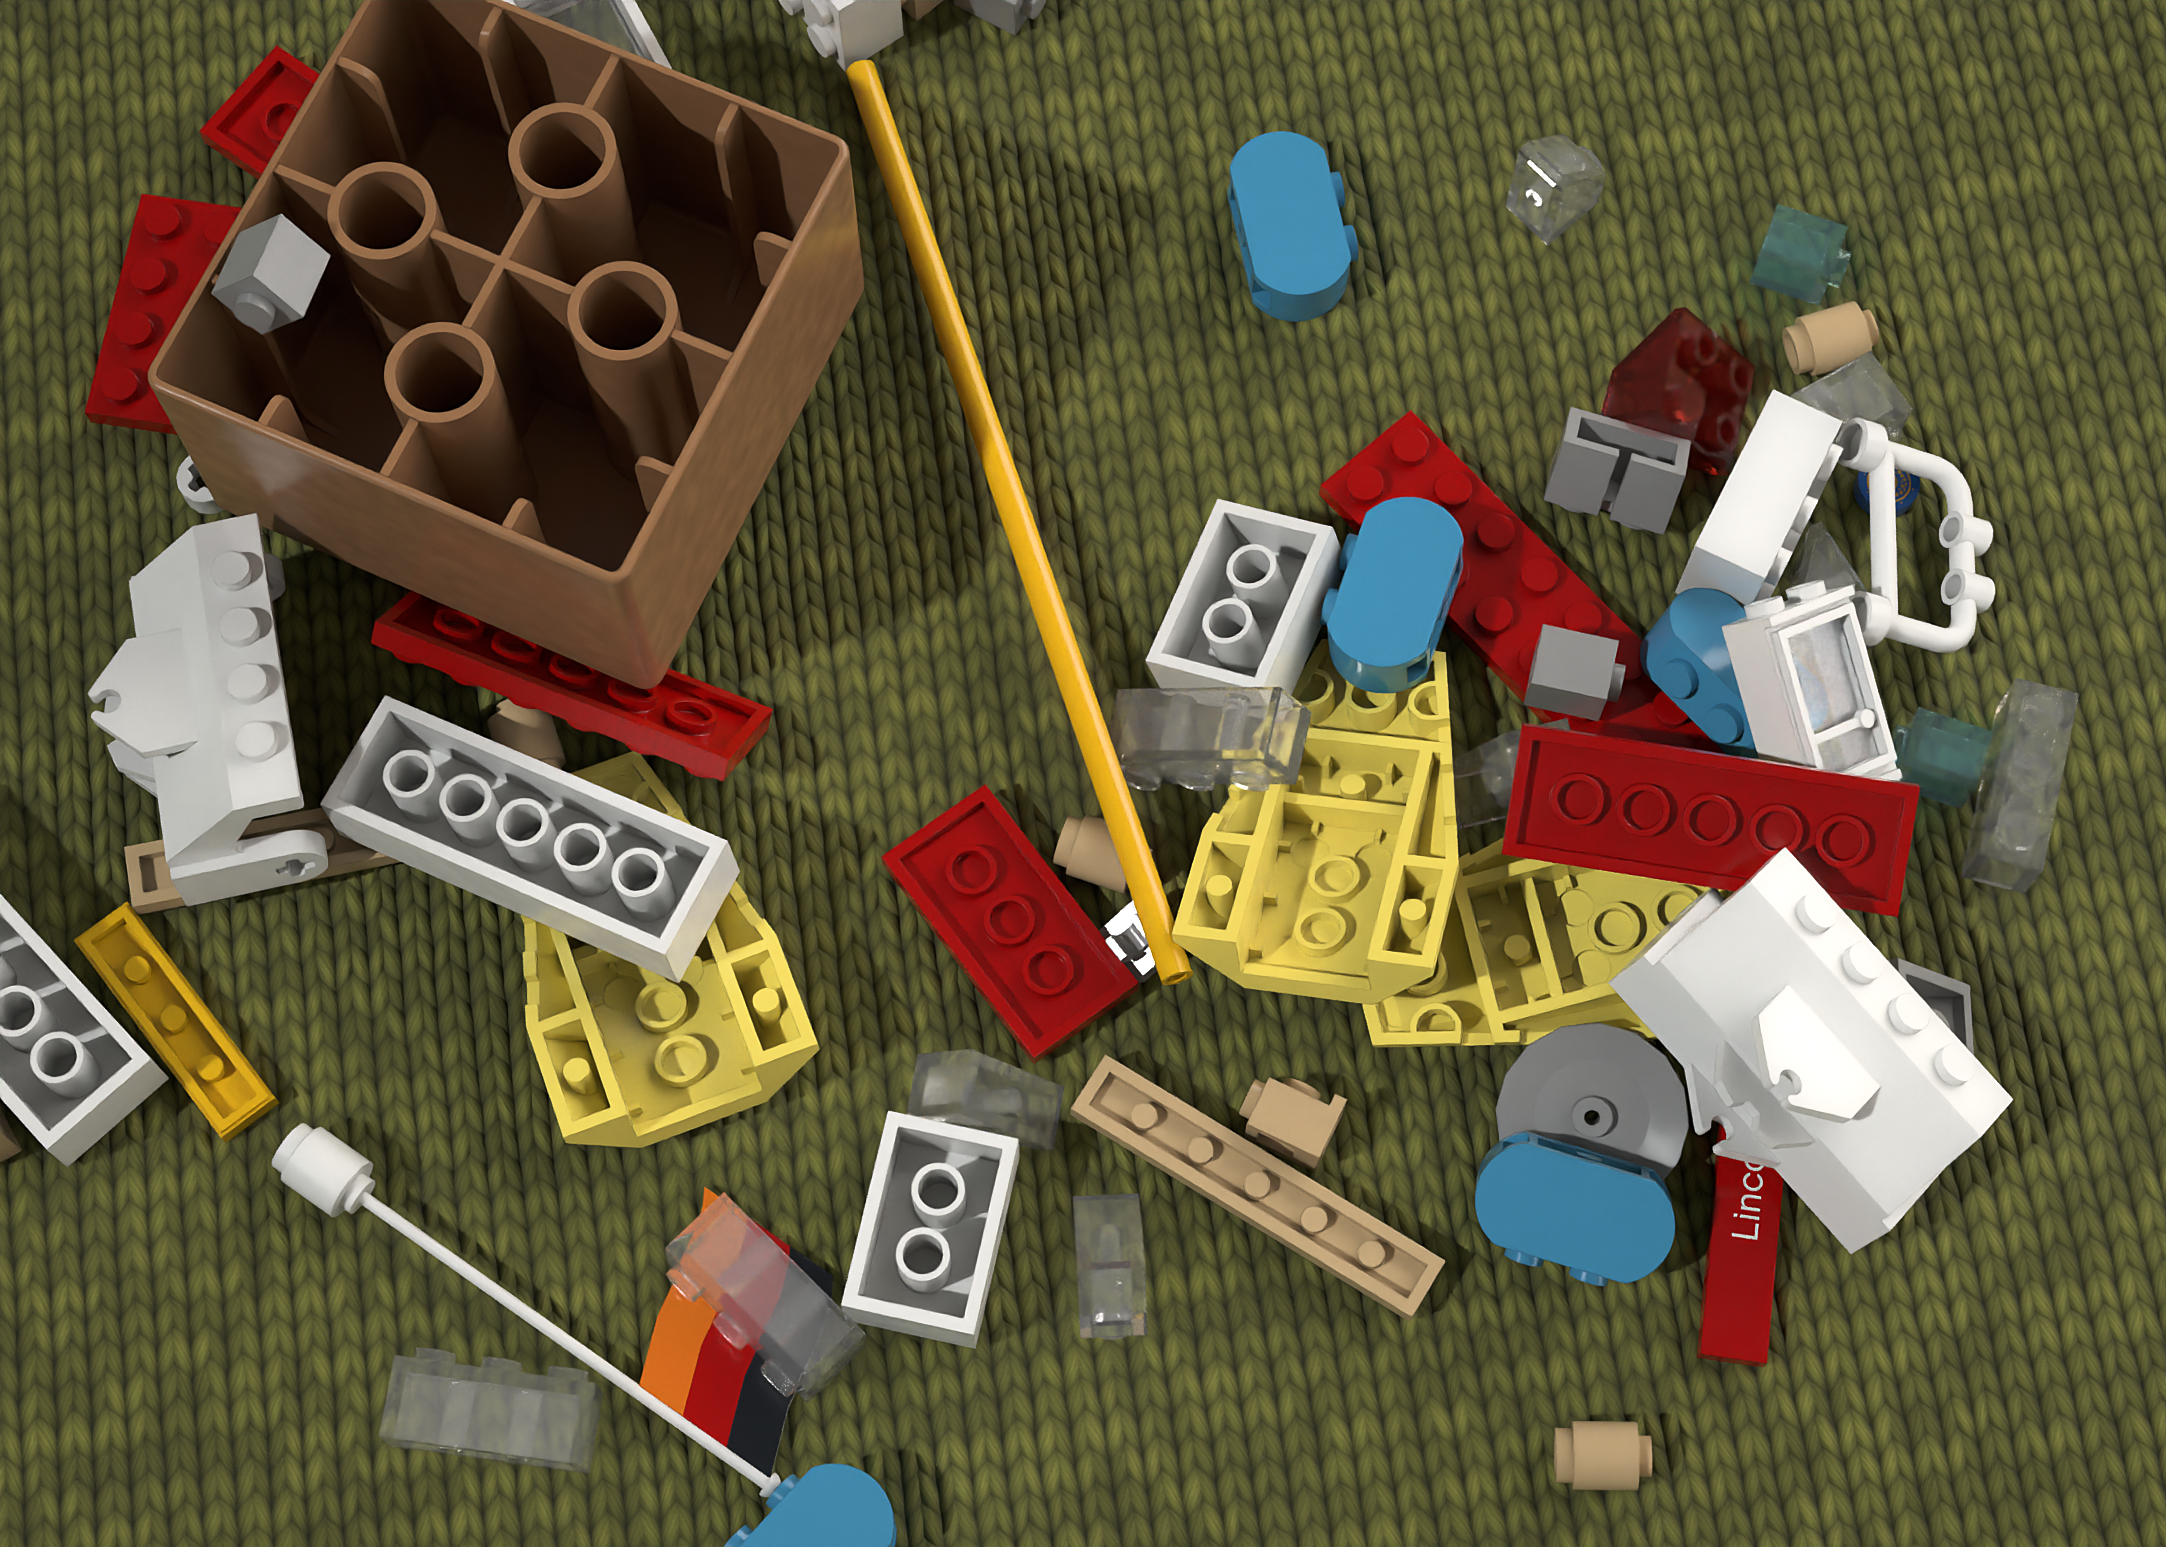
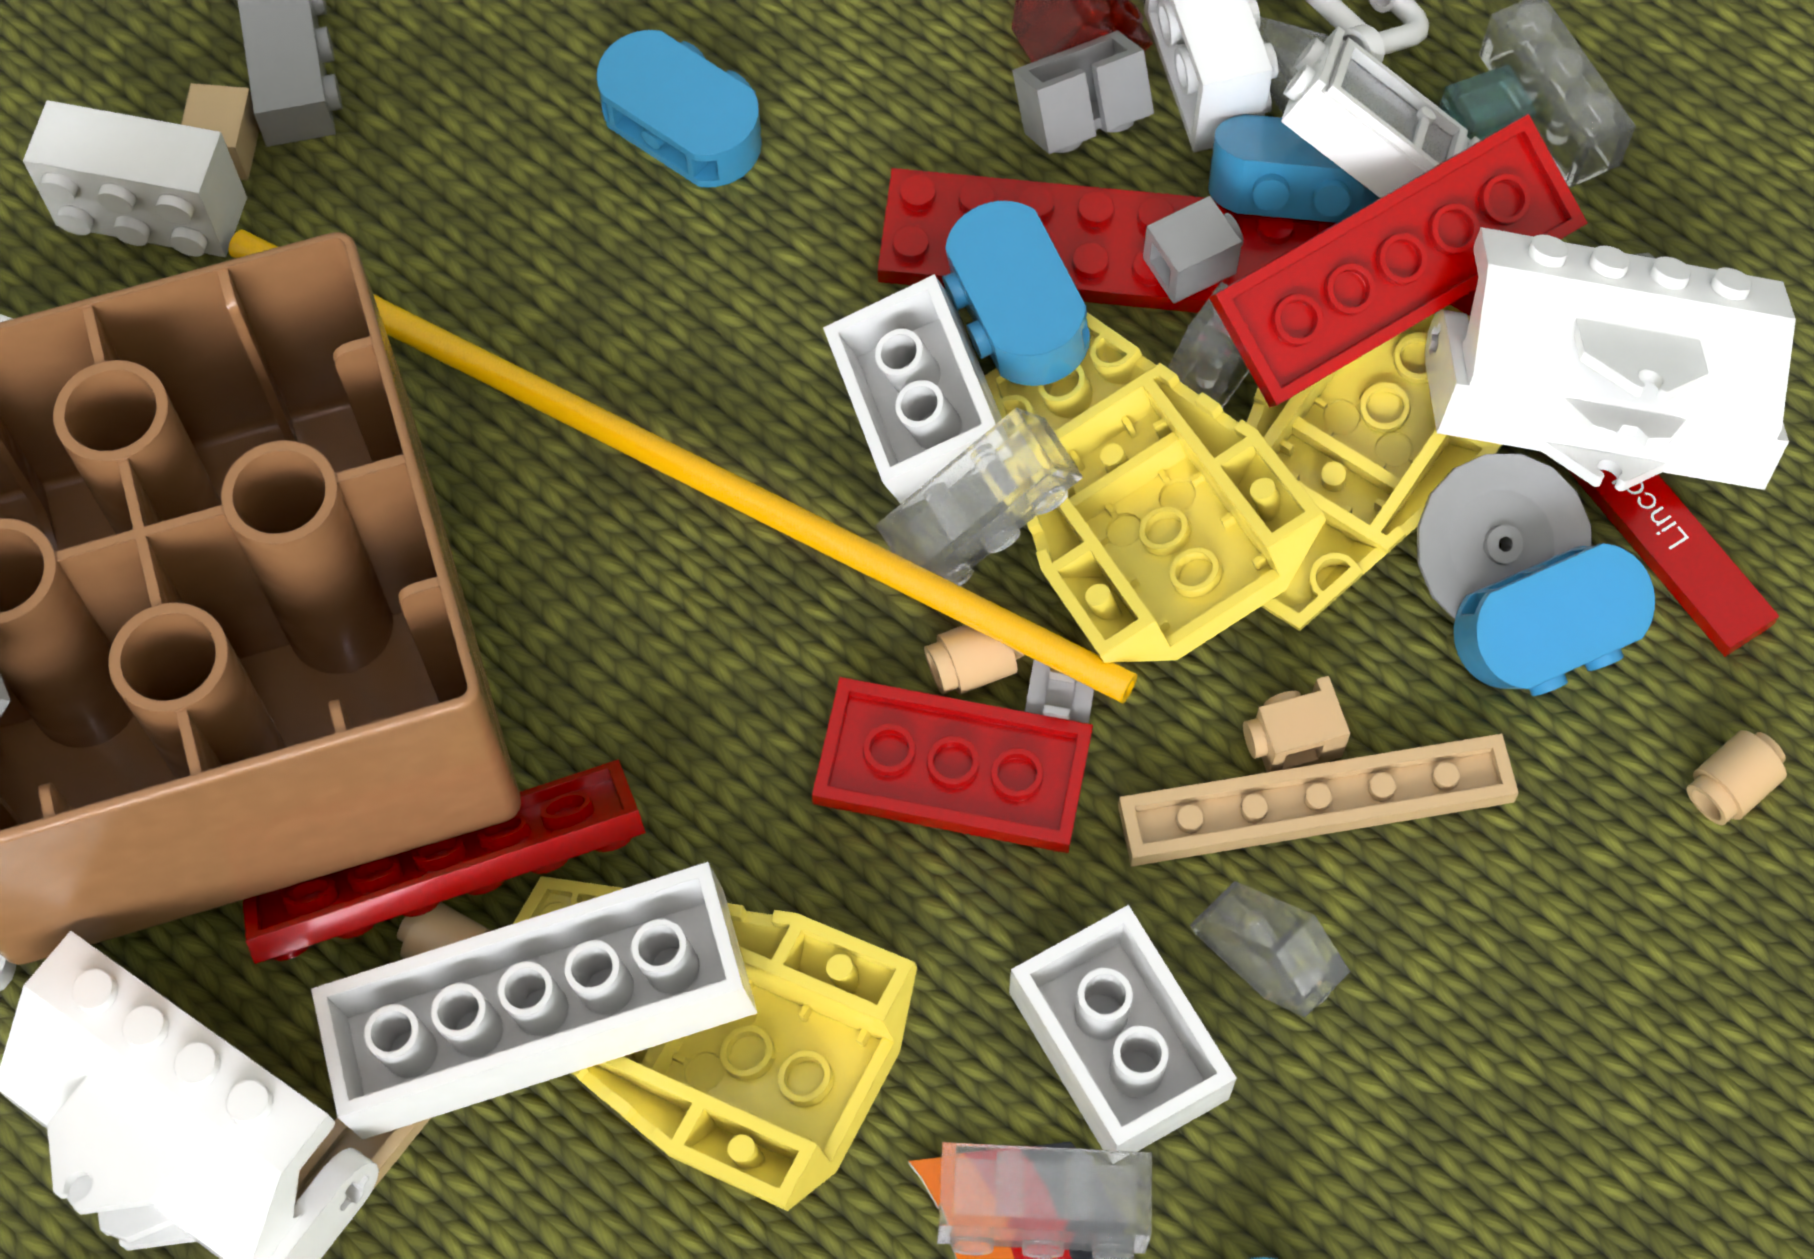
camera: 40 degrees left, 5 degrees down
(986, 1096) = (1057, 903): clear slope -> none

